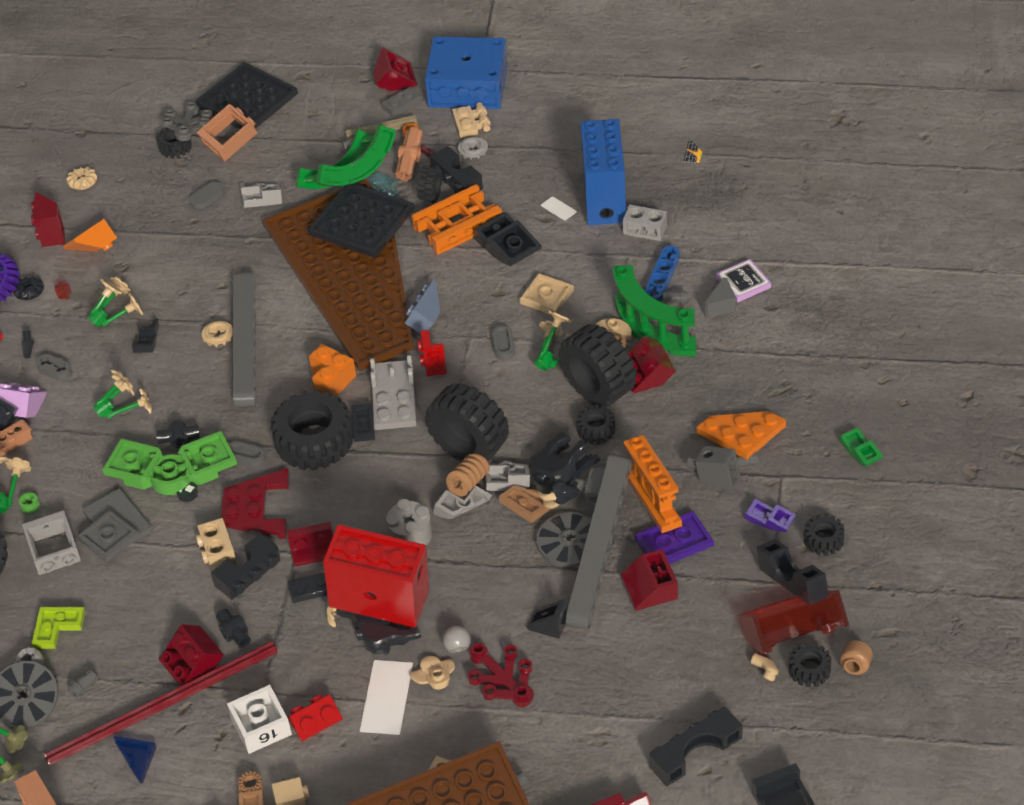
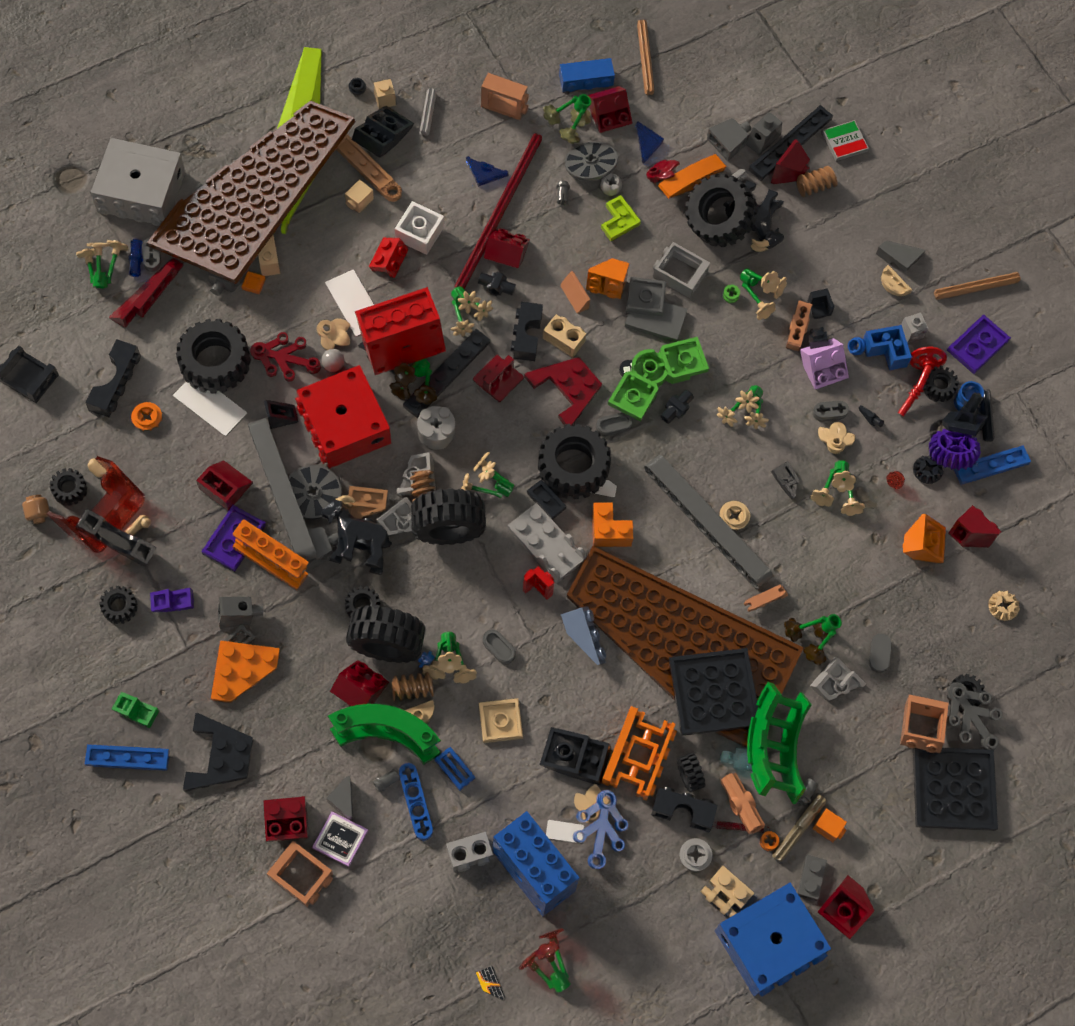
camera: 135 degrees right, 20 degrees up
(72, 344) = (836, 437): none -> tan plate
(126, 562) = (608, 278): none -> orange slope
(167, 579) = (575, 293): none -> nougat slope
(230, 202) = (824, 628): none -> dark brown plant
(259, 265) = (766, 597): none -> nougat piece
(279, 633) = (467, 302): none -> tan plant
(358, 115) = (830, 826): none -> orange brick
(394, 449) = (502, 486): none -> plant
(490, 573) = (343, 417): none -> red gear
(513, 196) = (601, 825): none -> blue plant
(522, 208) = (583, 802): none -> tan plate
(575, 677) = (207, 335): none -> black tyre
(610, 677) = (213, 408): none -> white sticker
(611, 292) = (465, 782): none -> blue tile
(639, 124) = (559, 978): none -> plant
(689, 685) = (146, 408): none -> orange gear
(759, 595) = (141, 522): none -> tan arm
(779, 305) = (285, 819): none -> dark red slope
(789, 285) = (283, 862): none -> nougat window
(800, 375) = (228, 755): none -> black wing
(891, 414) = (127, 757): none -> blue plate

